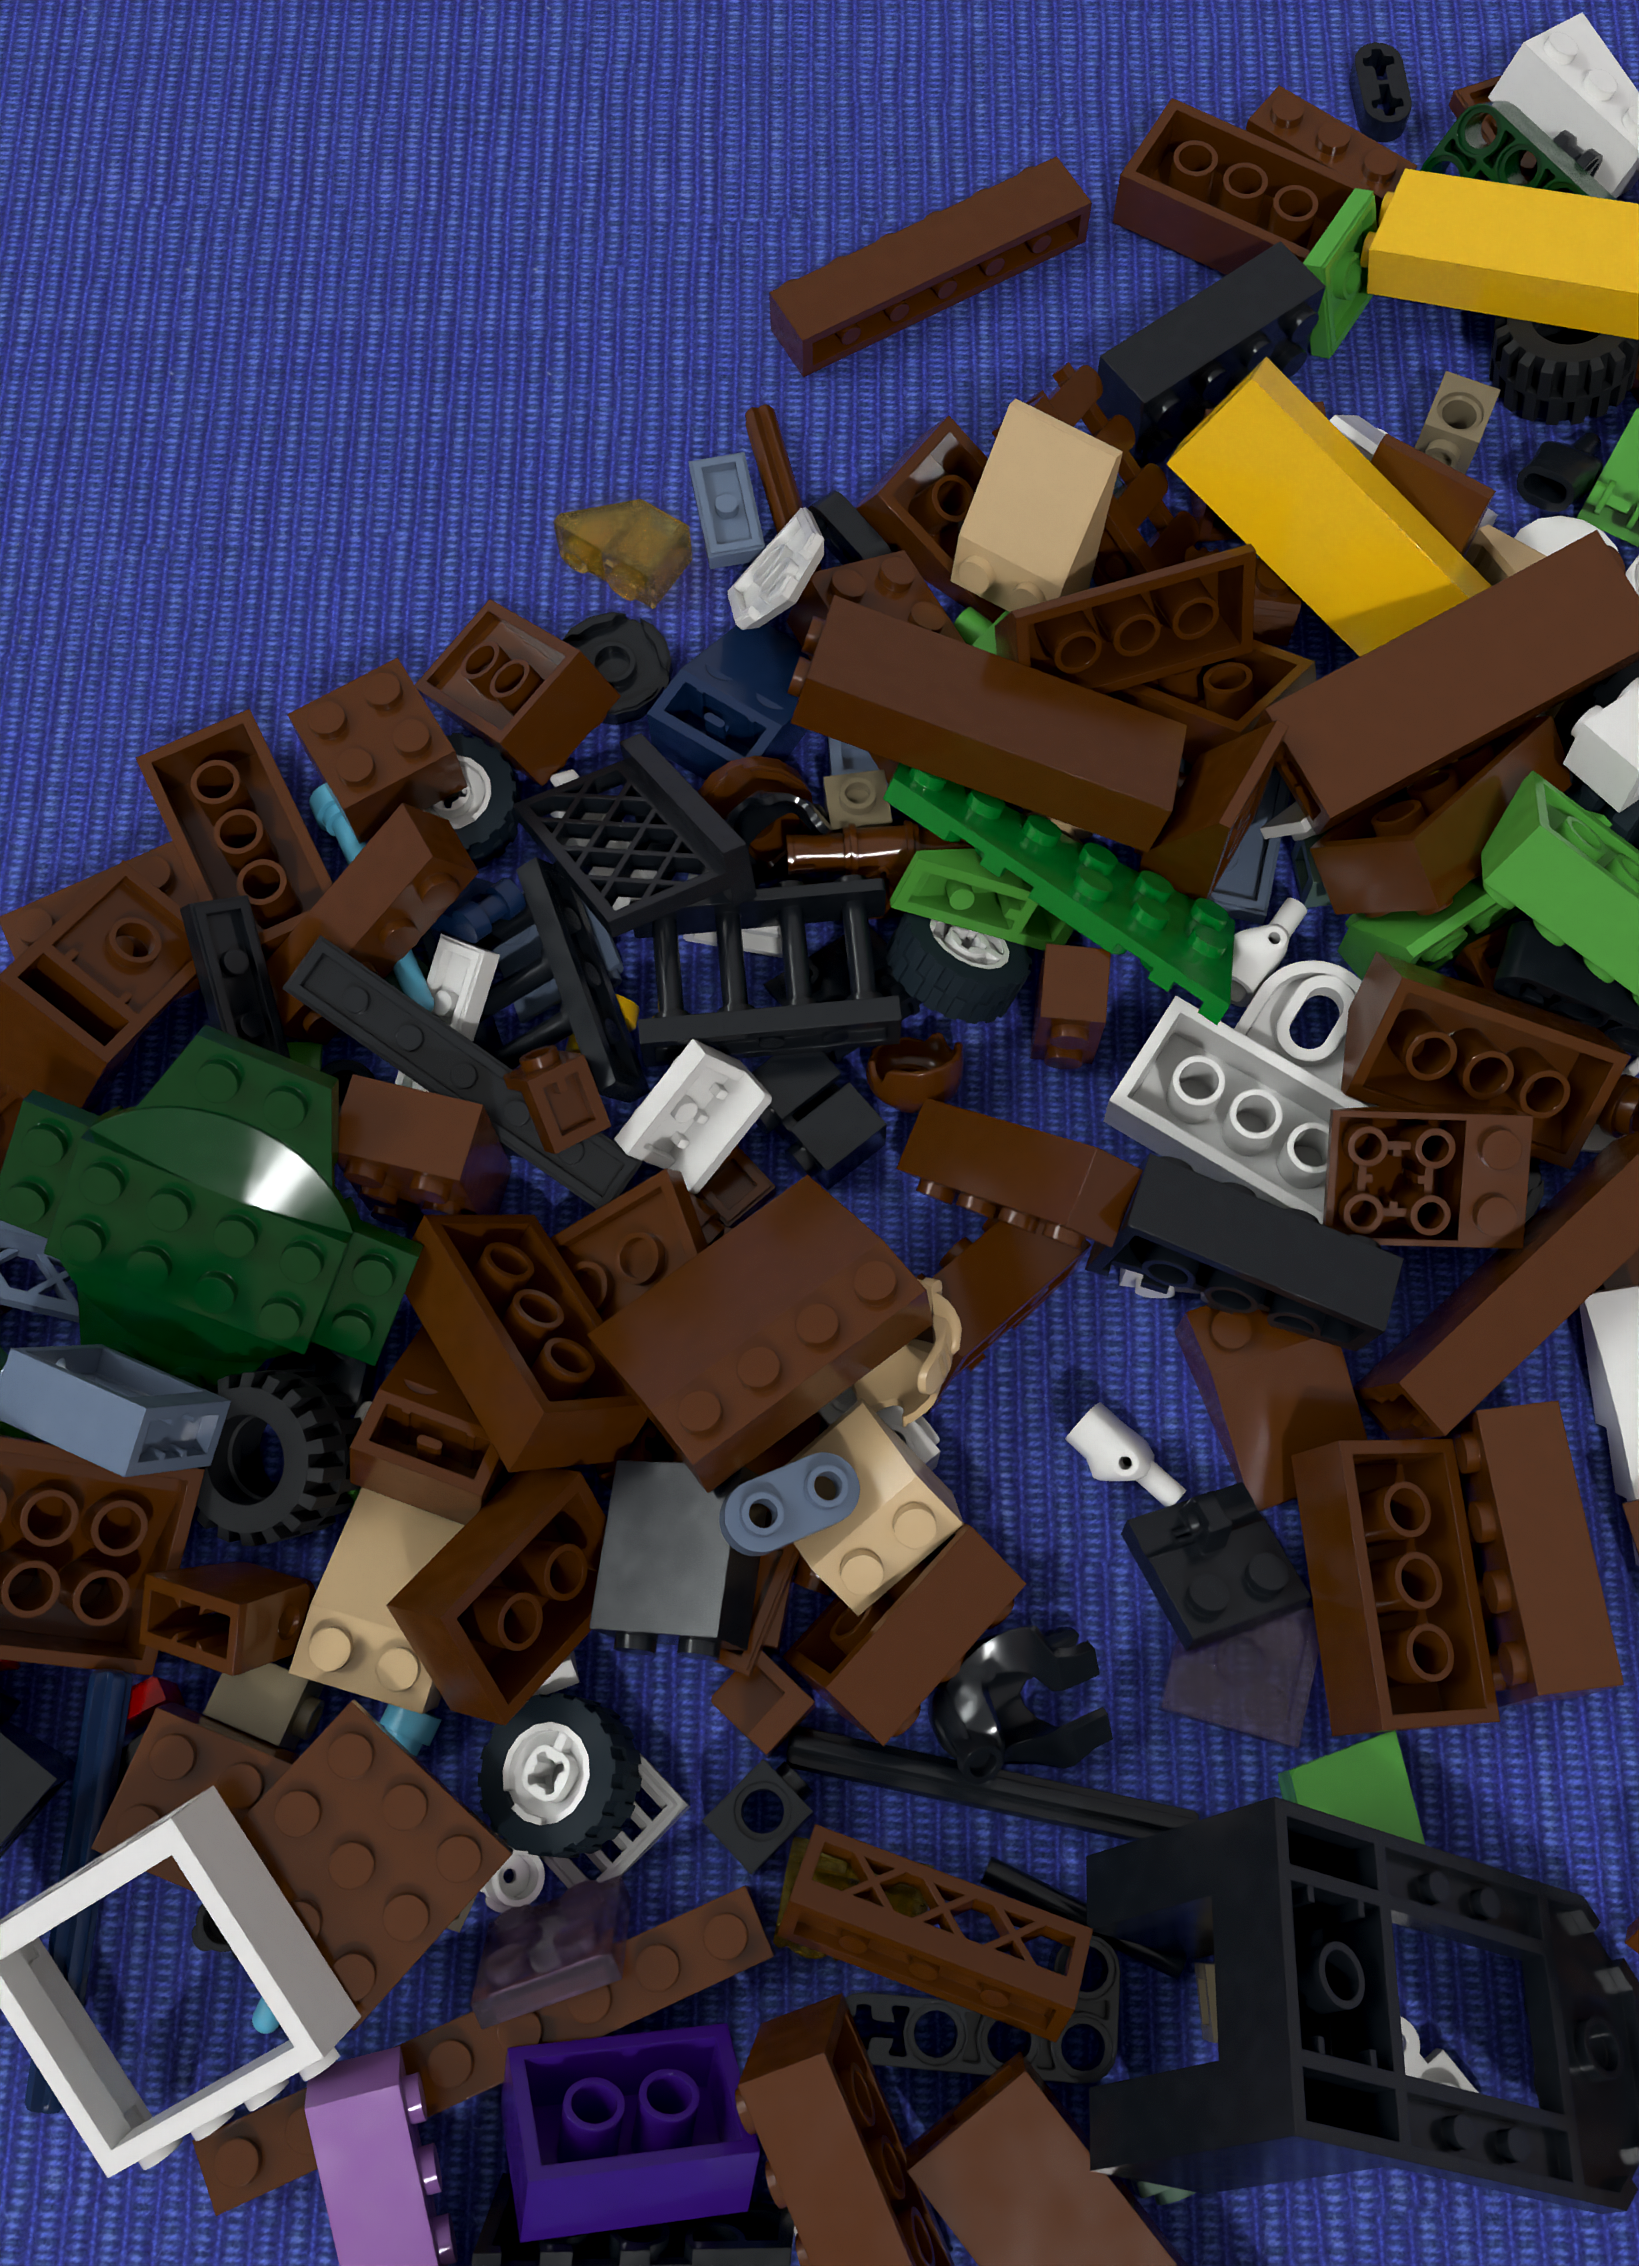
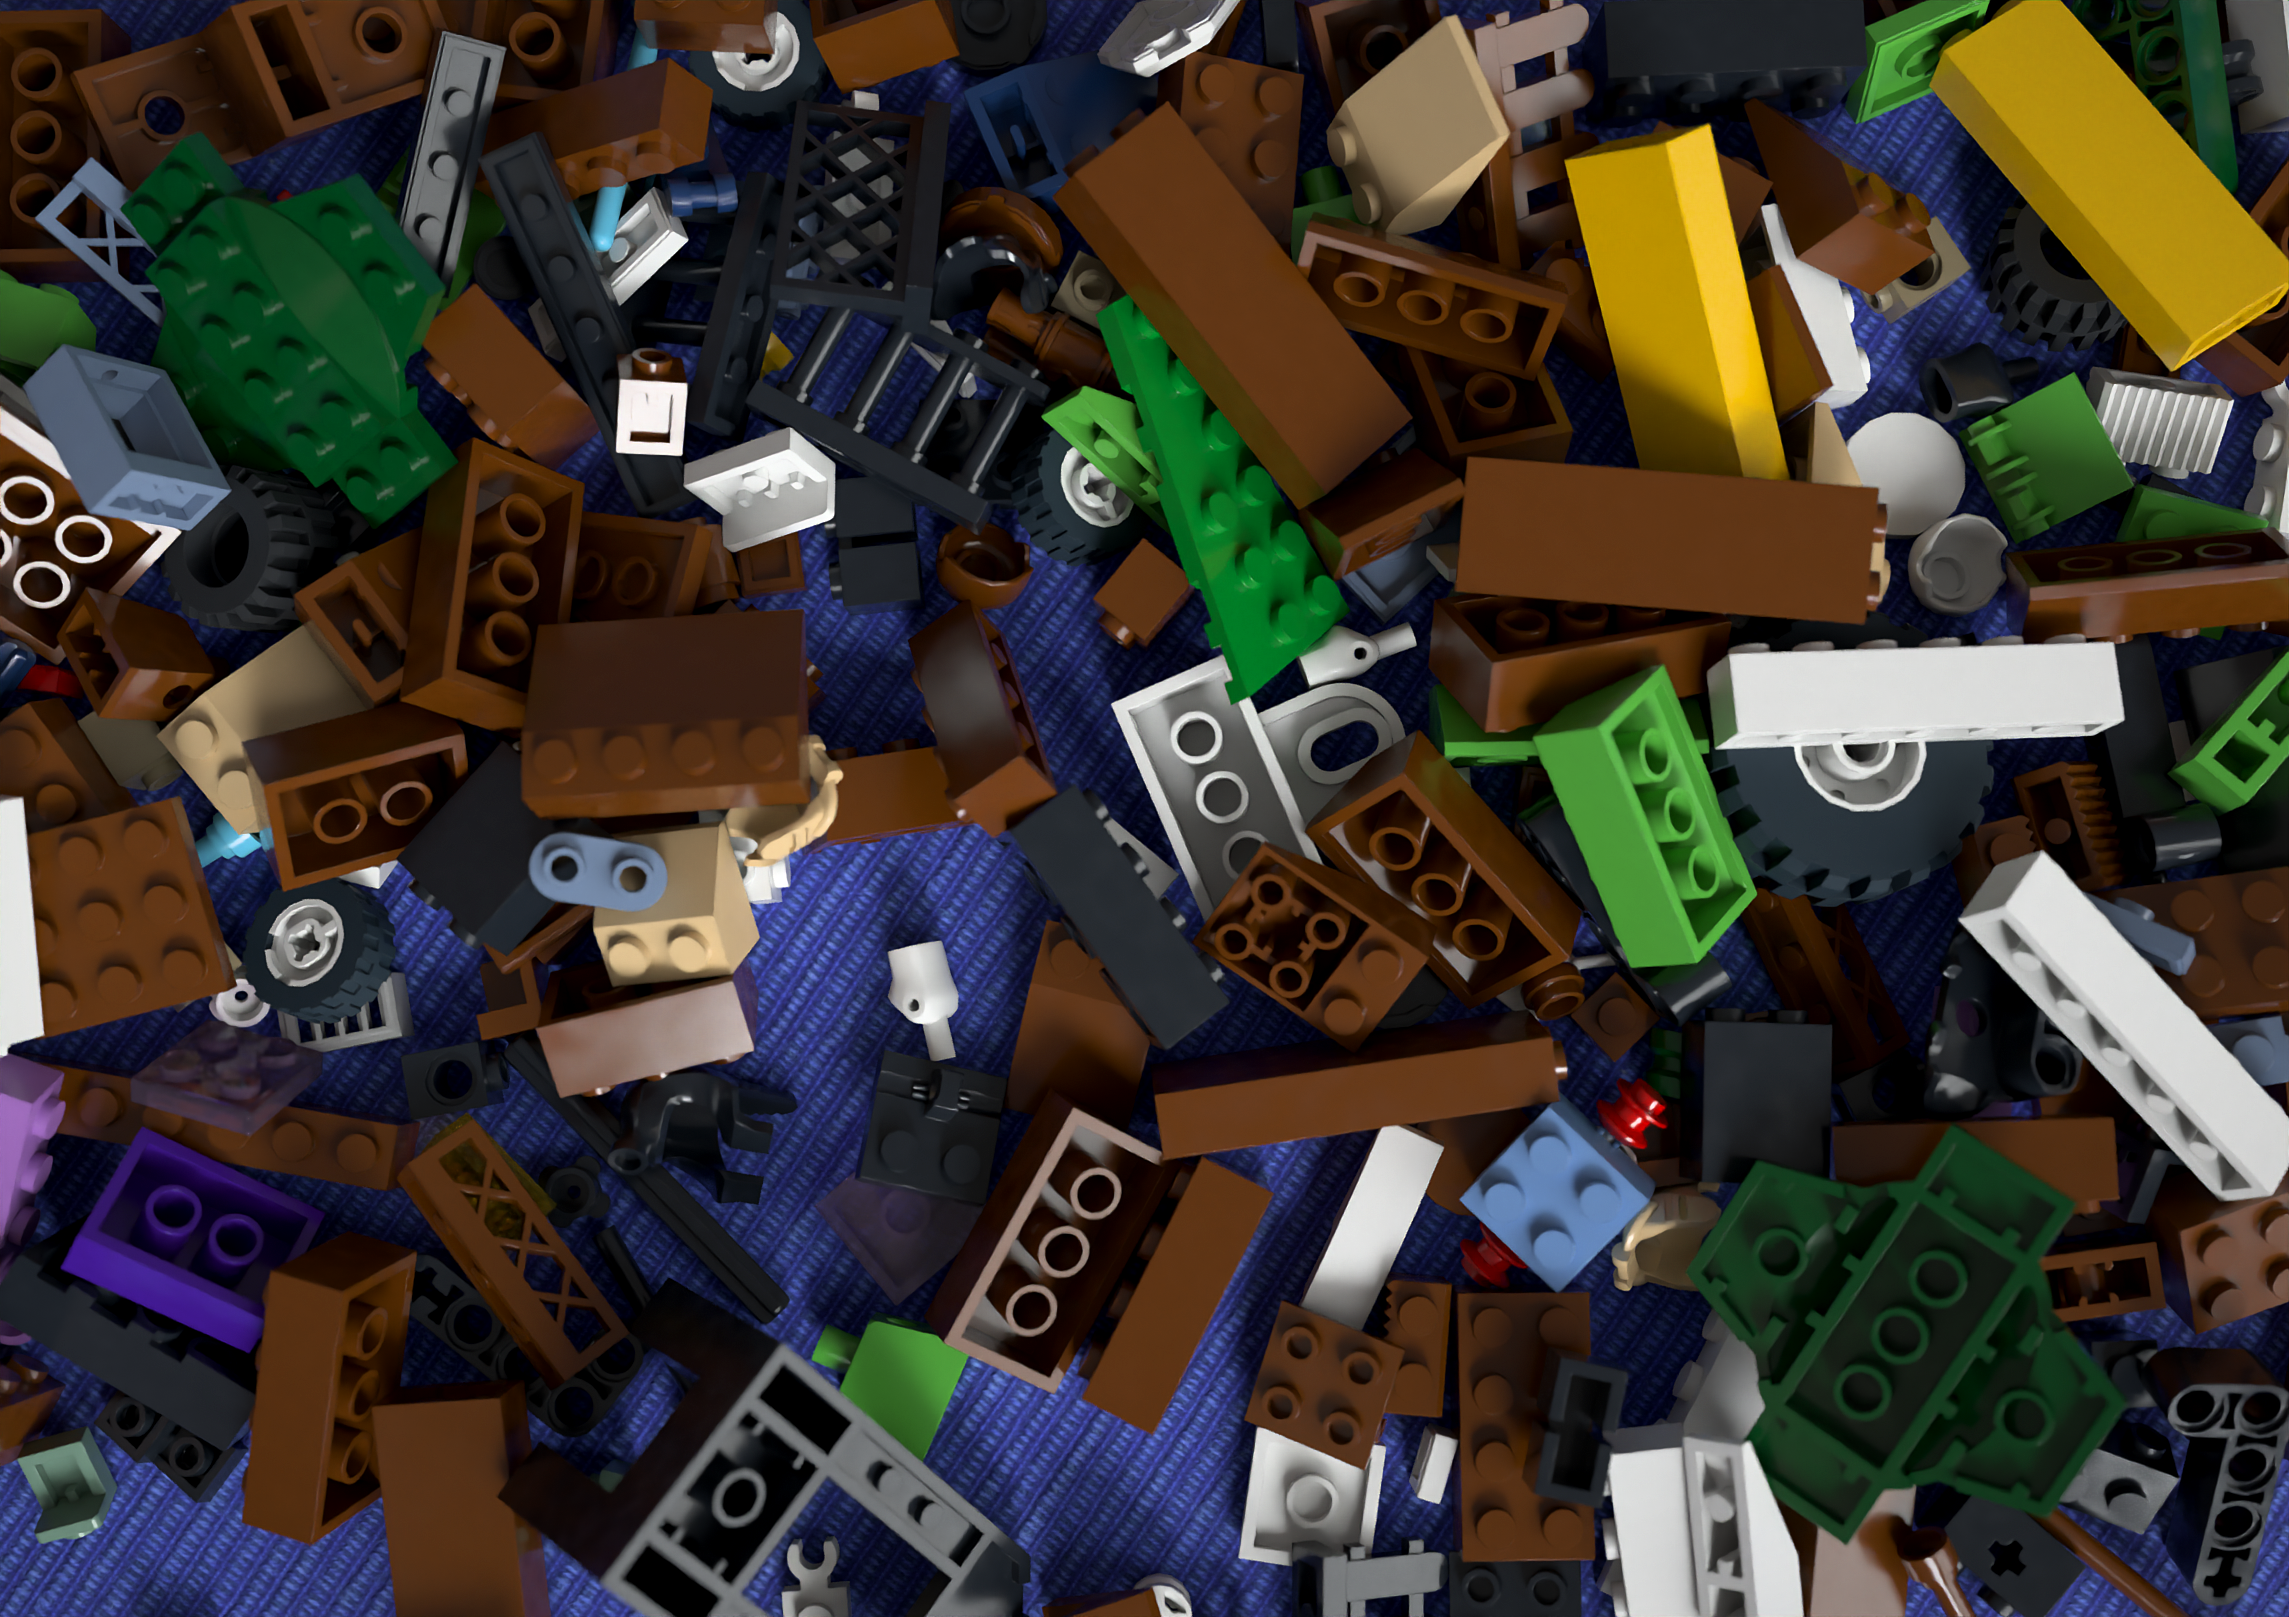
camera: 30 degrees right, 15 degrees up
(935, 1828) = (592, 1199): none -> black plate
(1394, 391) = (1837, 206): none -> reddish brown slope

